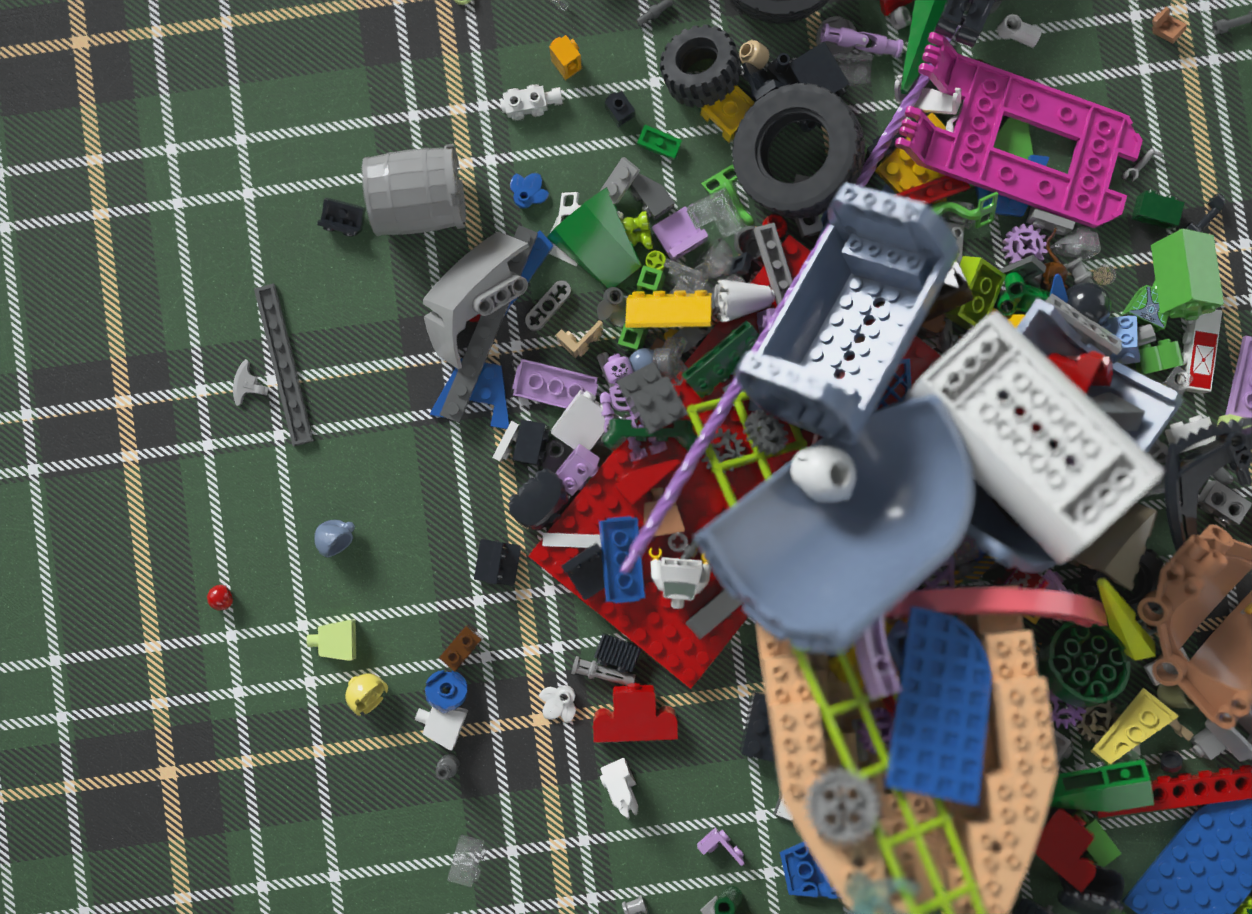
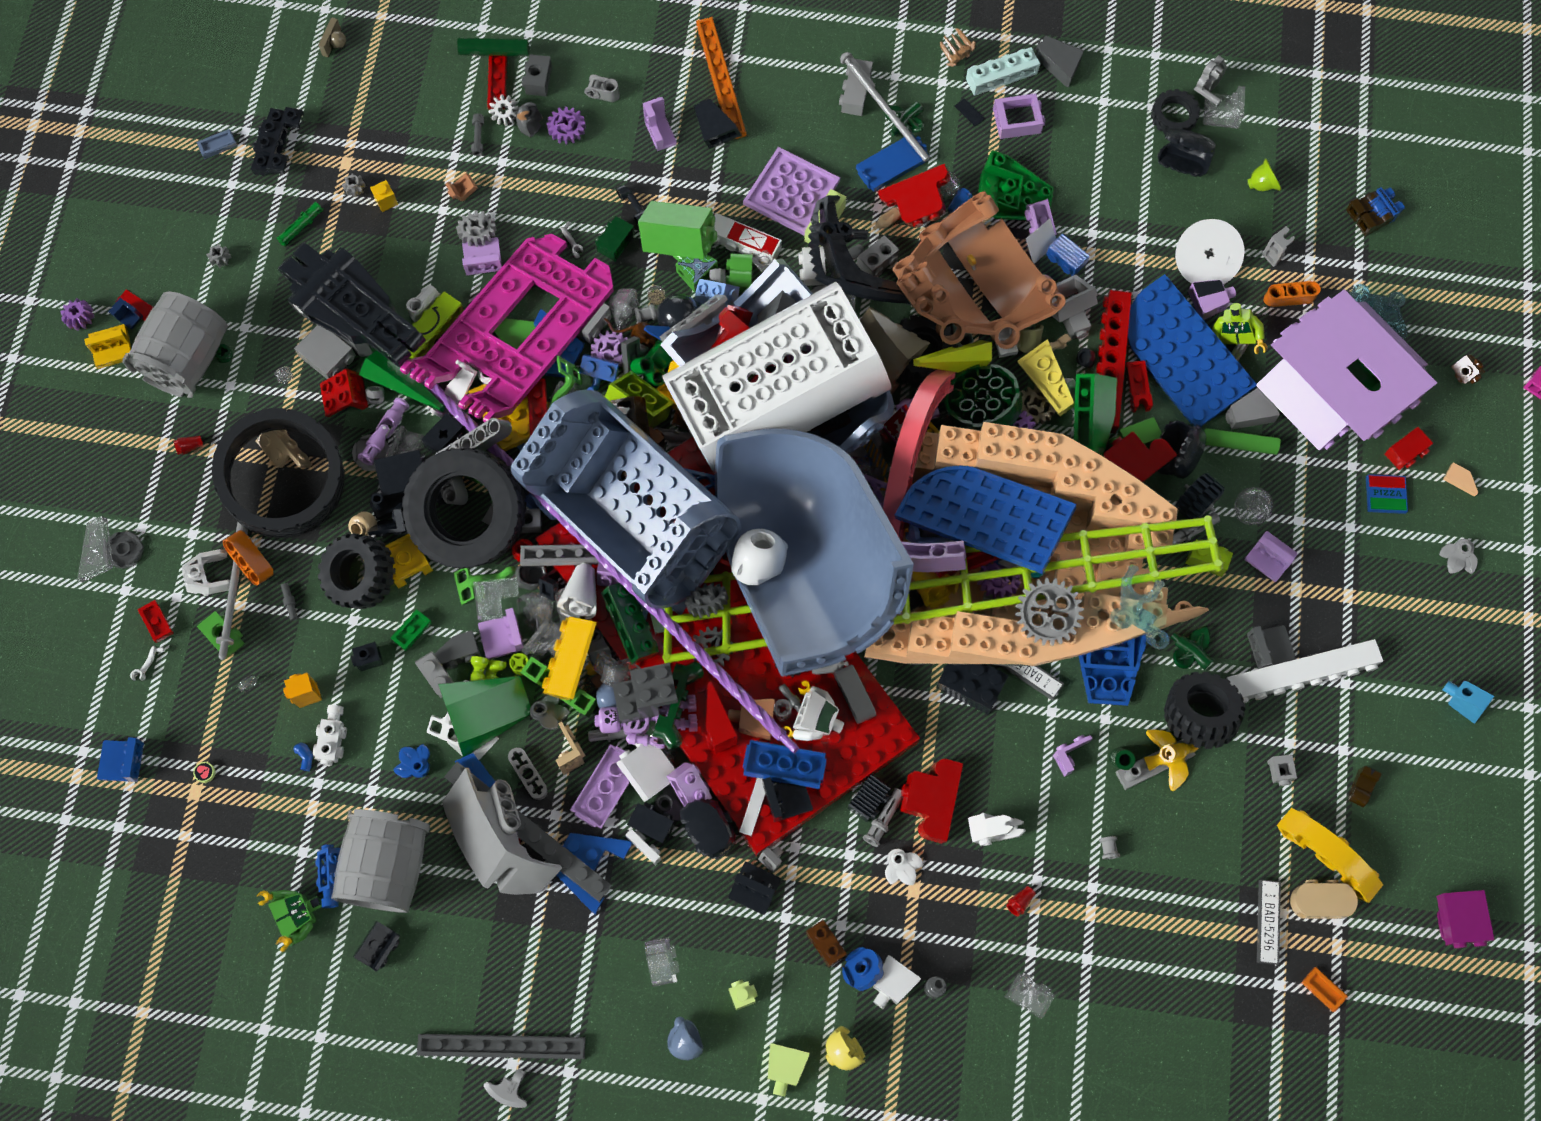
camera: 75 degrees left, 15 degrees down
(348, 126) = (292, 914): none -> bright green torso
(390, 580) = (742, 994): none -> yellowish green brick
(398, 143) = (327, 872): none -> blue brick
(399, 492) = (661, 961): none -> clear brick
(506, 83) = (306, 755): none -> blue arm
(529, 571) = (770, 858): none -> light grey tile
(555, 829) = (1019, 902): none -> red cone
(877, 141) = (480, 438): none -> light grey beam
(885, 104) = (443, 434): none -> black brick
(997, 242) = (598, 369): none -> blue plate
(999, 51) = (436, 321): none -> lime brick
(1093, 74) = (482, 258): none -> lavender bracket
(1125, 60) = (476, 228): none -> light grey gear
(1155, 827) = (1138, 385): none -> red plate

